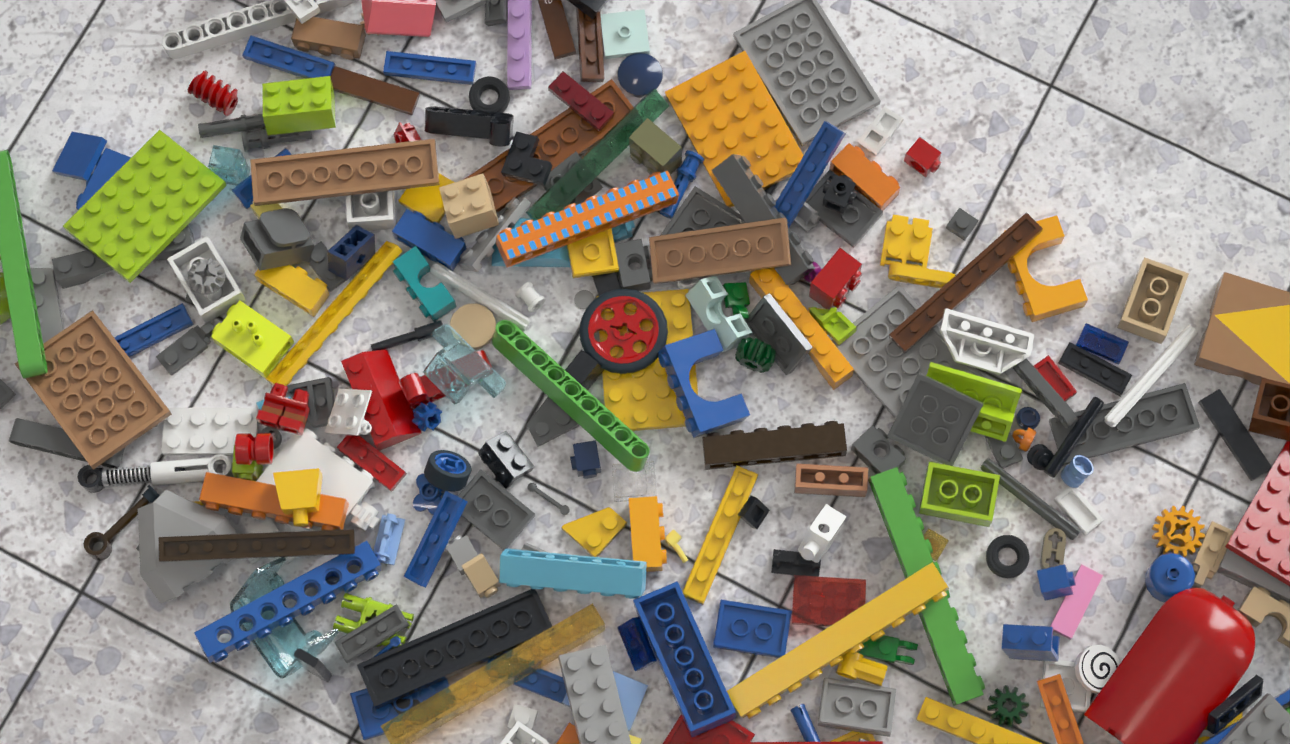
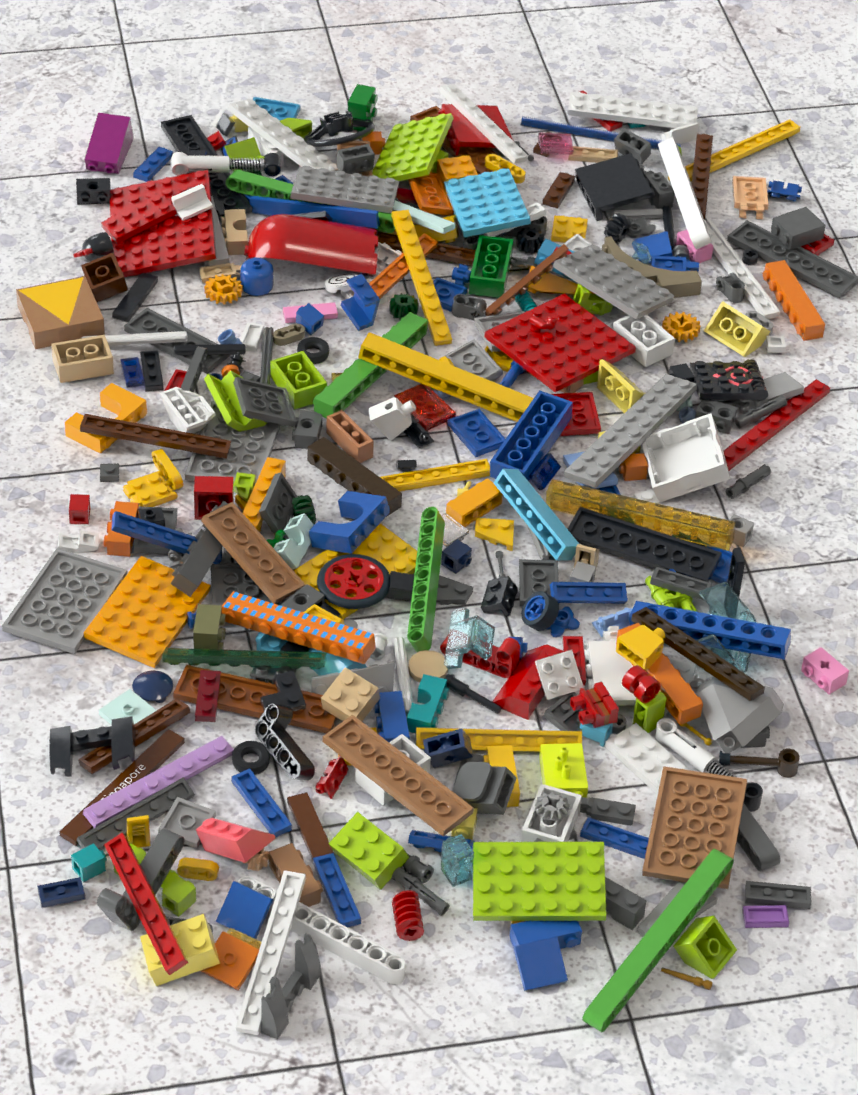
camera: 135 degrees left, 30 degrees down
(179, 689) = (825, 670): none -> bright pink brick

